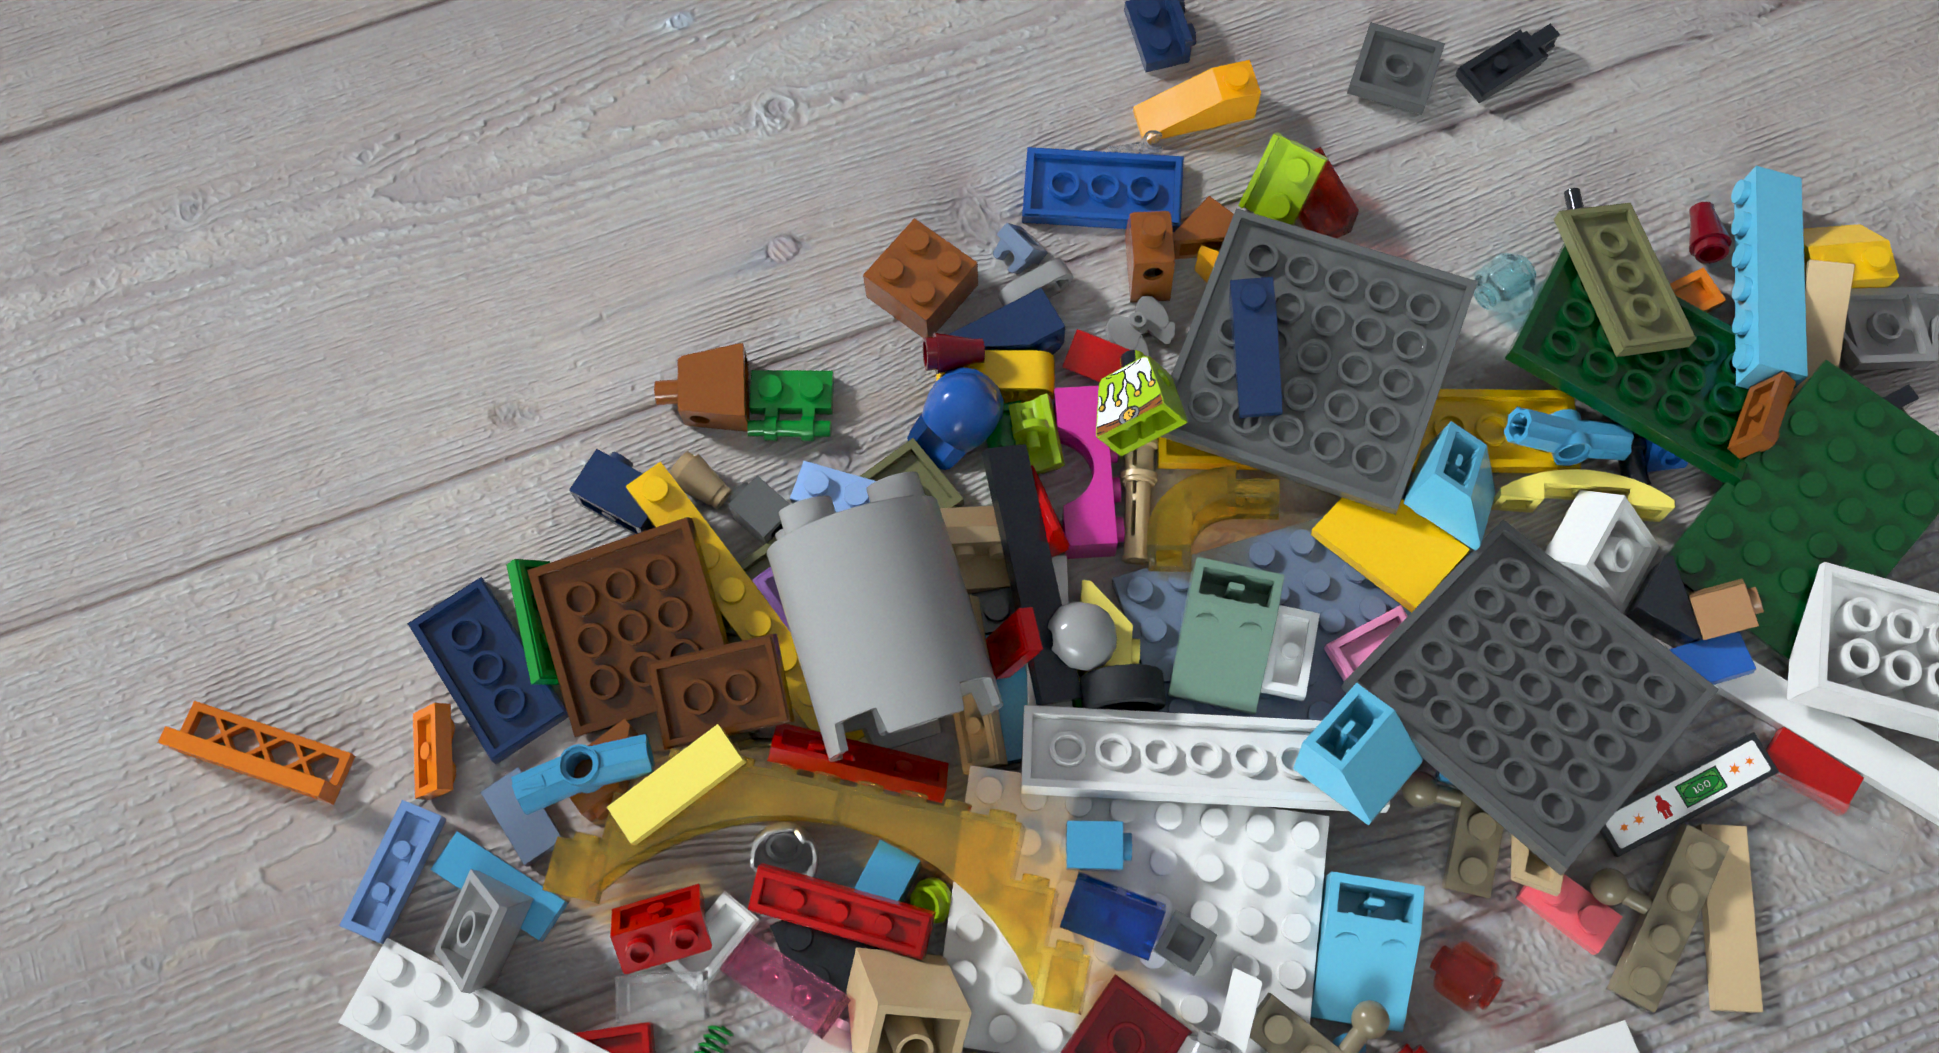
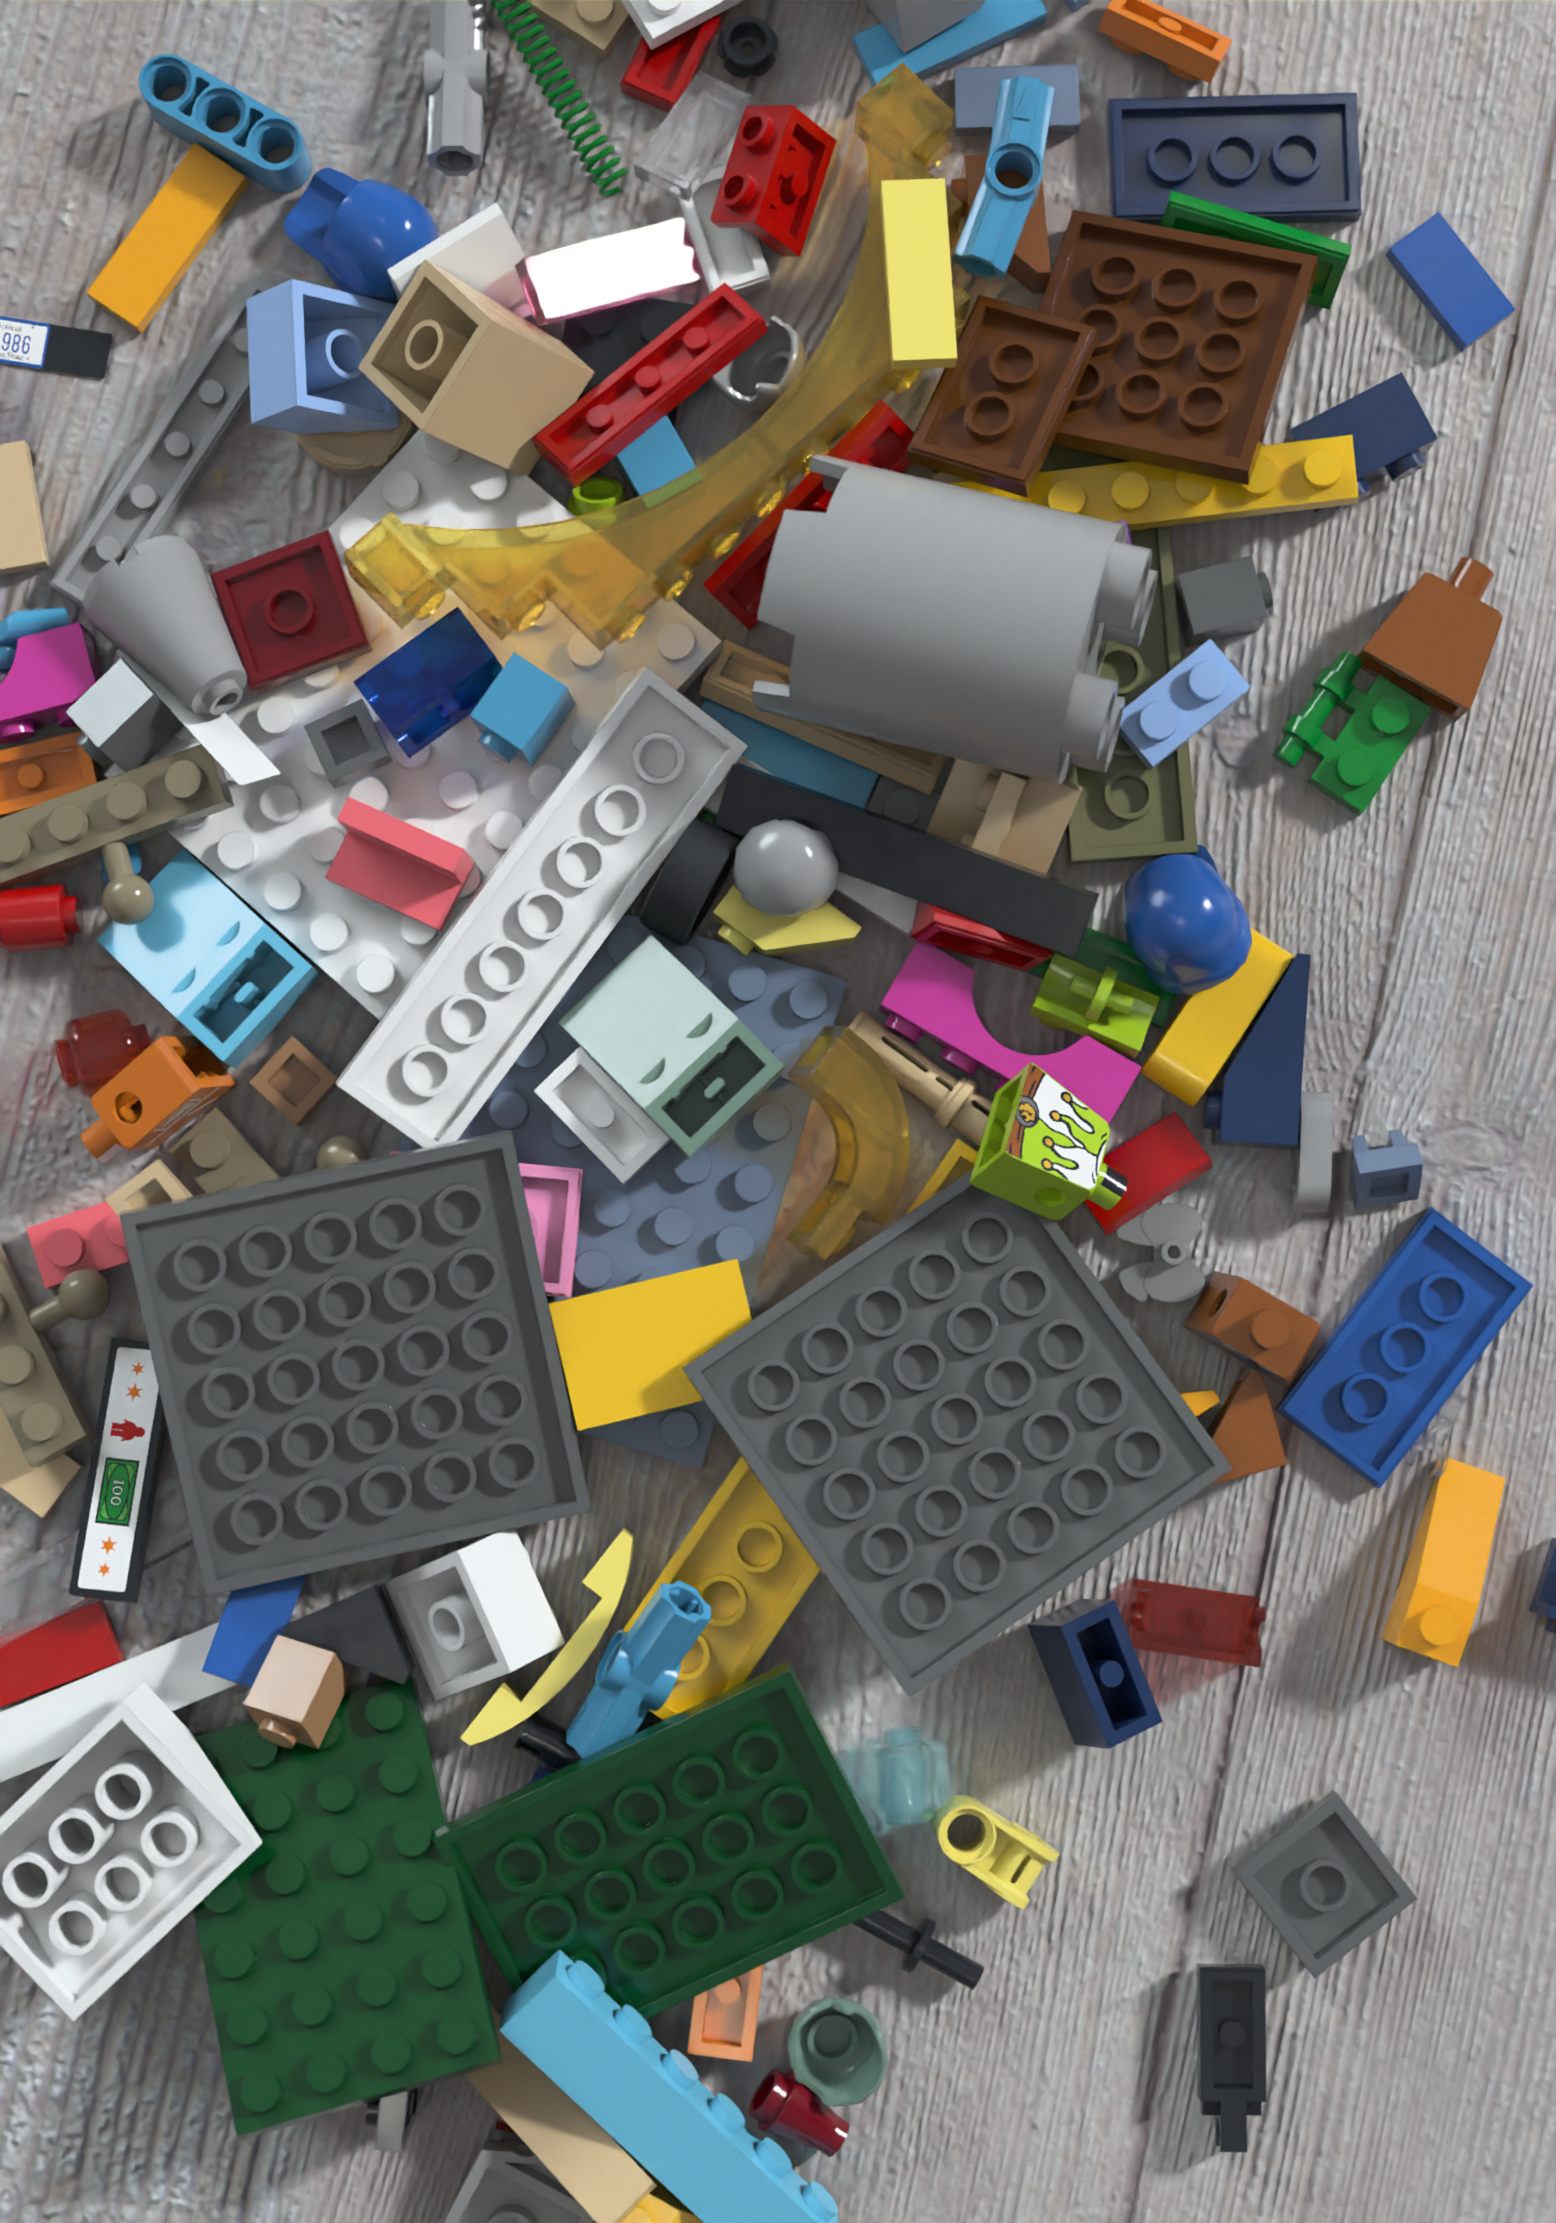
camera: 120 degrees right, 15 degrees up
(494, 507) = (1450, 282): none -> blue tile
(571, 1003) = (752, 32): none -> black plate
(700, 480) = (1317, 551): tan cone -> none
(921, 279) = (1418, 1004): dark orange brick -> none
(951, 352) = (1274, 960): dark red cone -> none
(1014, 643) = (830, 781): red tile -> none
(1236, 860) = (399, 865): none -> coral panel
(1255, 346) = (1012, 1341): dark blue slope -> none
(1283, 180) = (1244, 1584): lime plate -> none
(1359, 754) = (411, 1082): medium azure slope -> none
(1386, 216) = (1095, 1673): none -> dark blue brick
(1395, 850) = (295, 1081): none -> medium nougat plate
(1454, 485) = (668, 1471): medium azure slope -> none
(1469, 917) = (155, 1096): none -> orange torso
(1504, 218) = (1001, 1855): none -> light yellow piece
(1624, 279) = (796, 1917): olive tile -> none
(1668, 226) = (838, 2051): none -> sand green hair
(1762, 415) = (491, 1930): dark orange plate -> none

